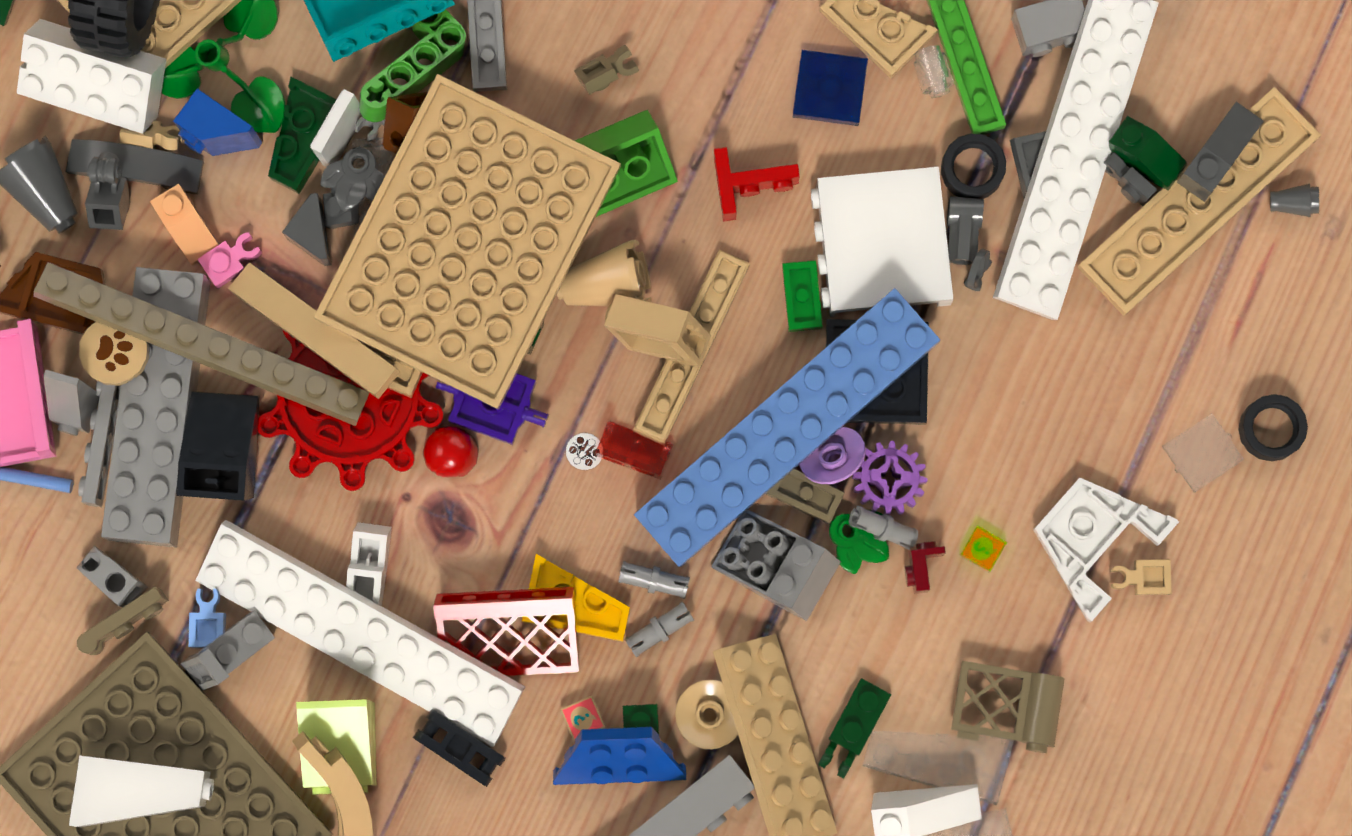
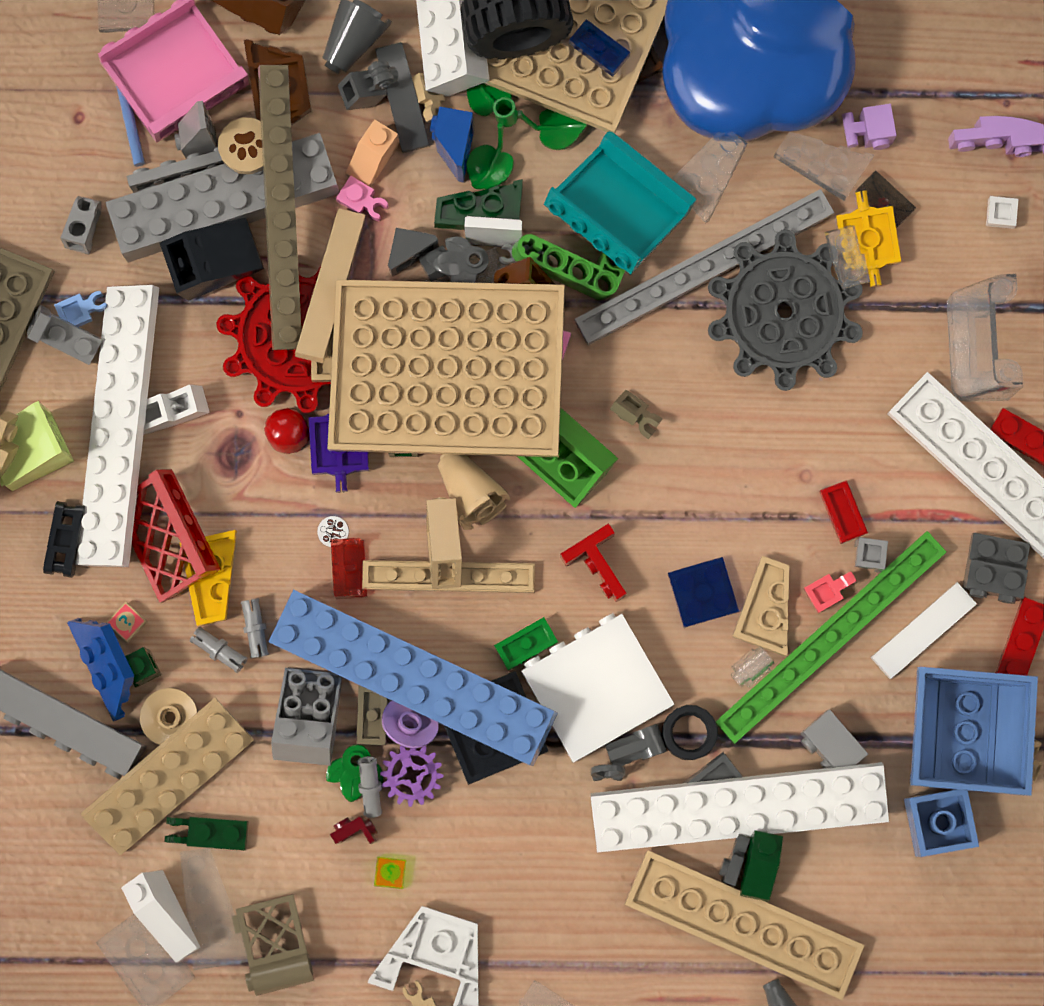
camera: 65 degrees right, 0 degrees up
(120, 622) = (51, 247): dark tan plate -> none
(1220, 151) = (790, 924): dark grey slope -> none

